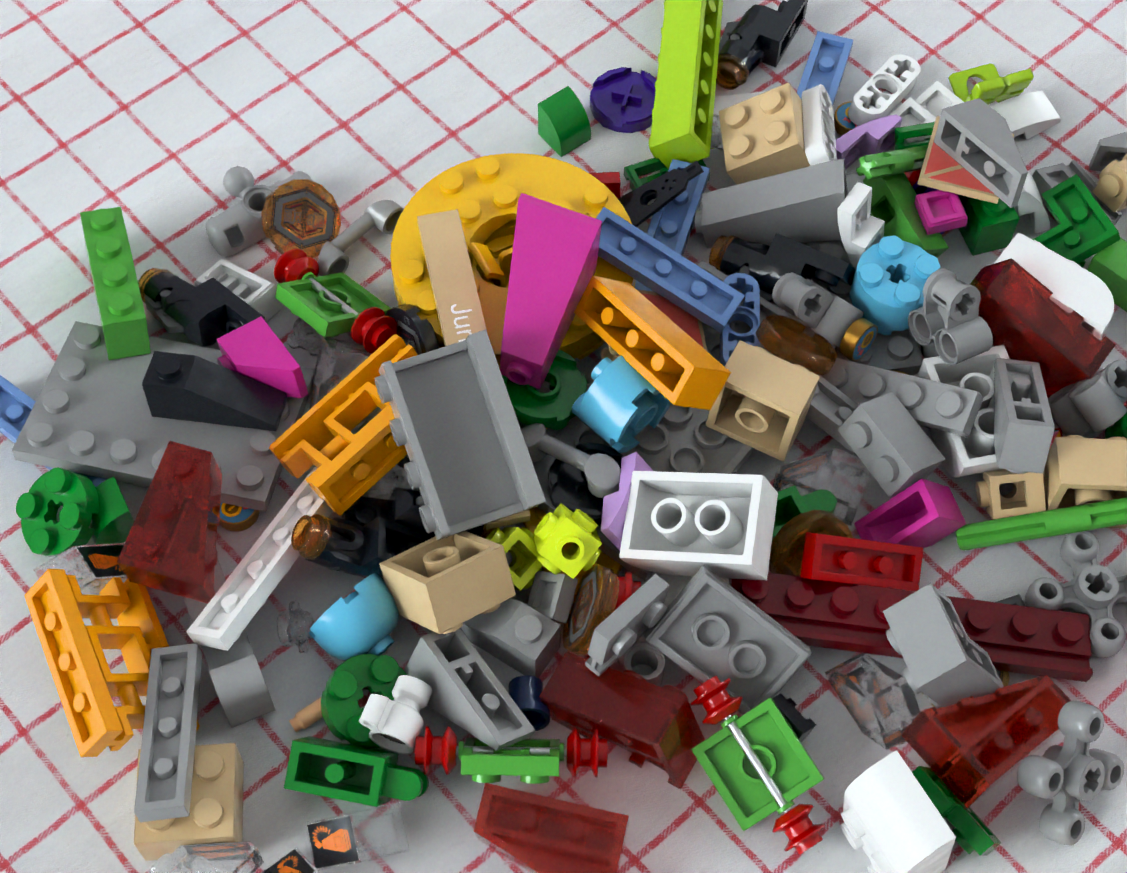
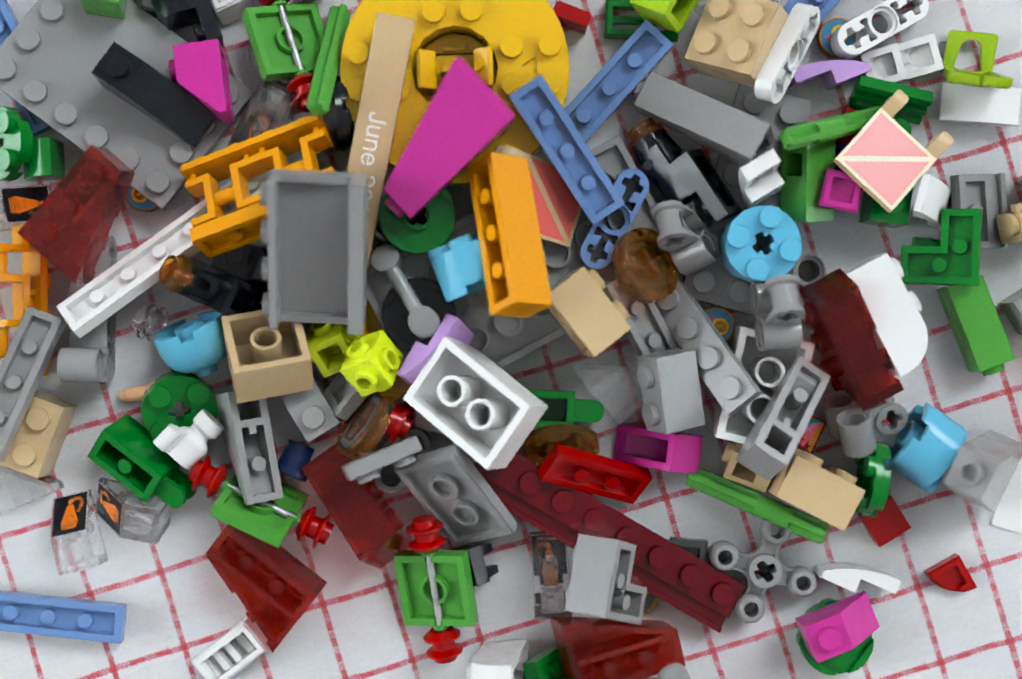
camera: 25 degrees right, 30 degrees up
(384, 294) = (328, 61): none -> bright green axle
(663, 188) = (586, 53): black piece -> none
(858, 339) = (703, 278): pearl gold tile -> none
(984, 147) = (910, 149): light grey slope -> none

